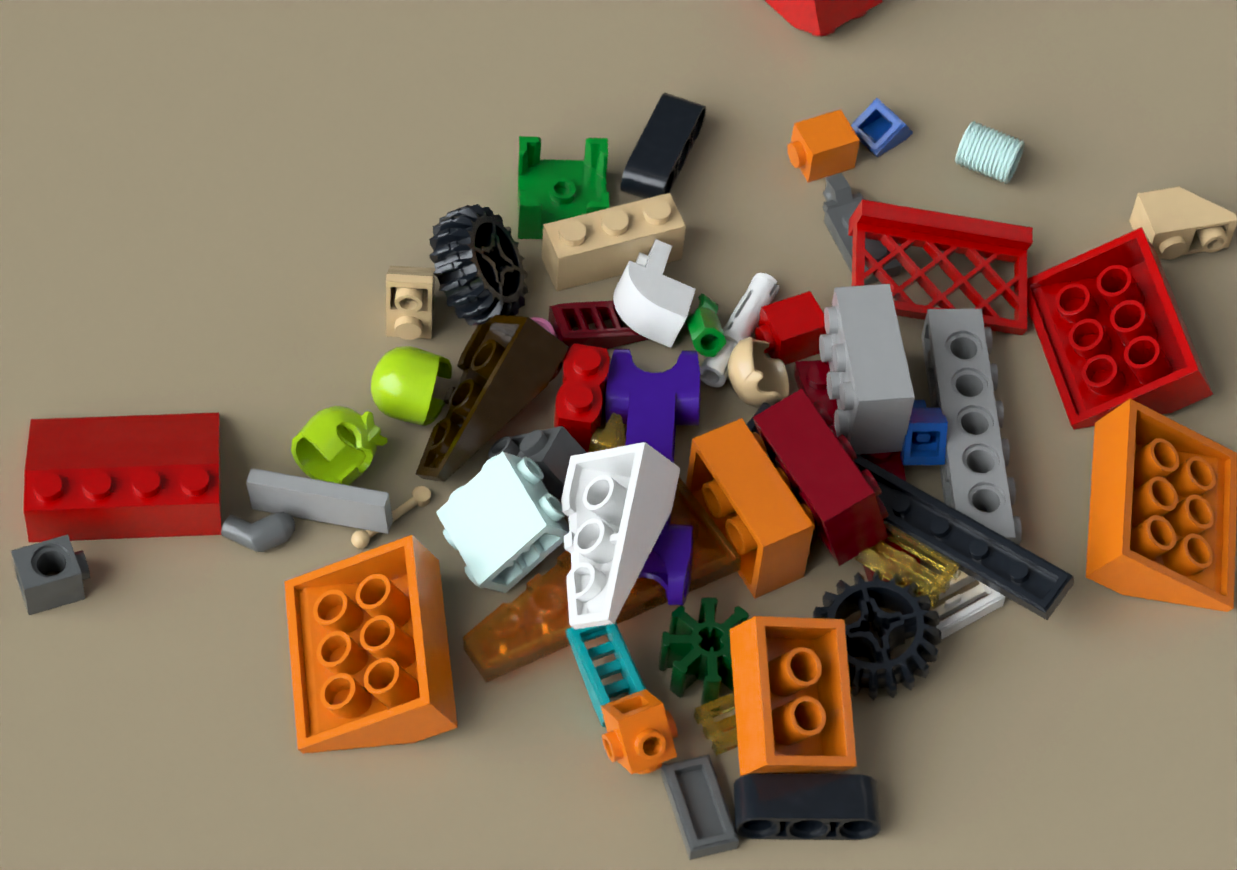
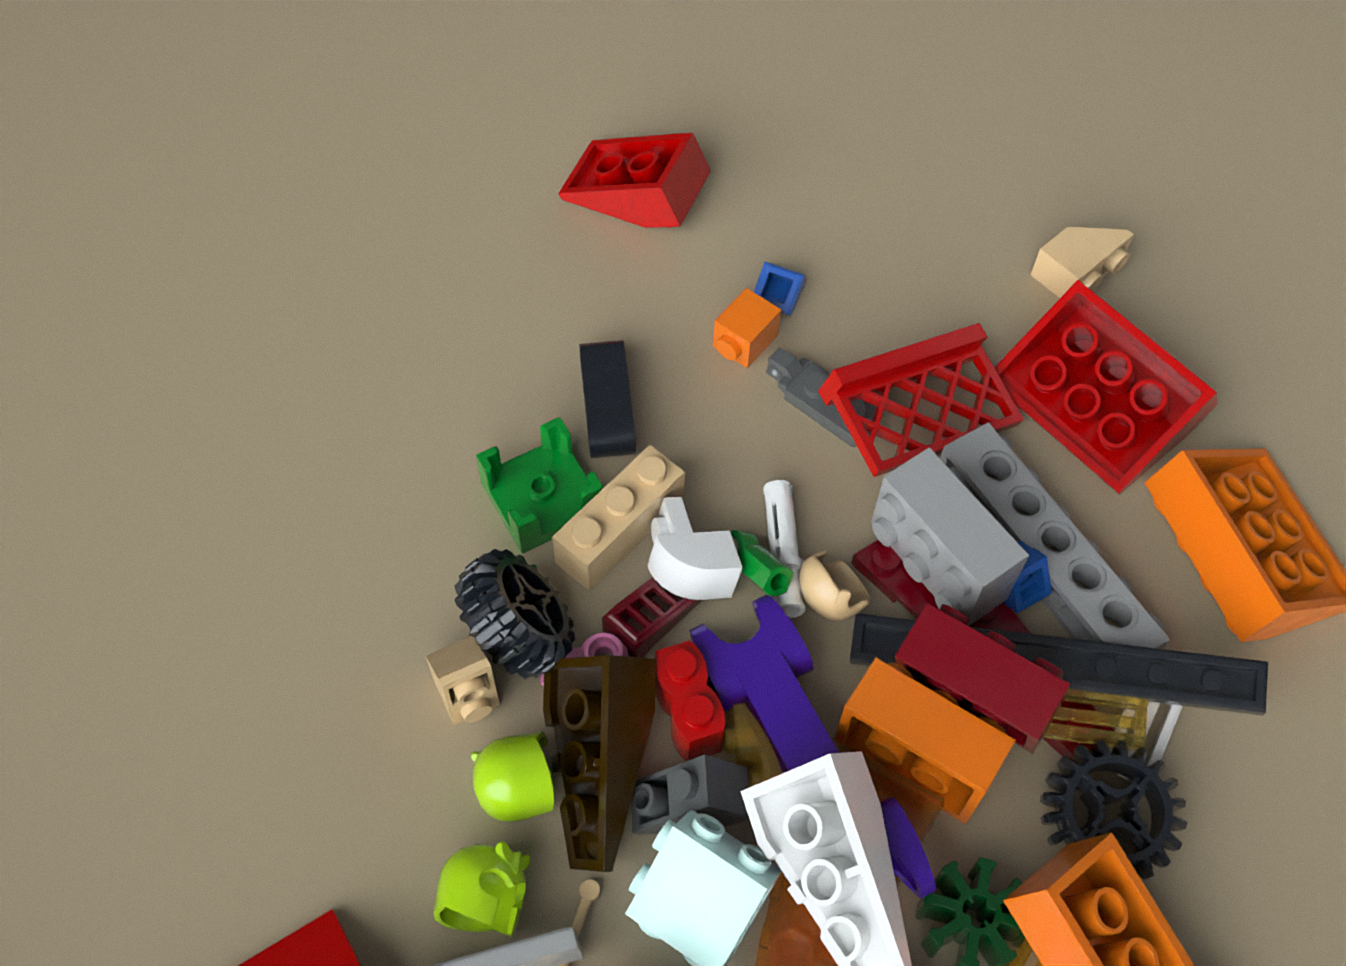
camera: 25 degrees left, 5 degrees up
(791, 327) = (833, 522): red brick -> none
(989, 152) = (889, 267): light aqua piece -> none

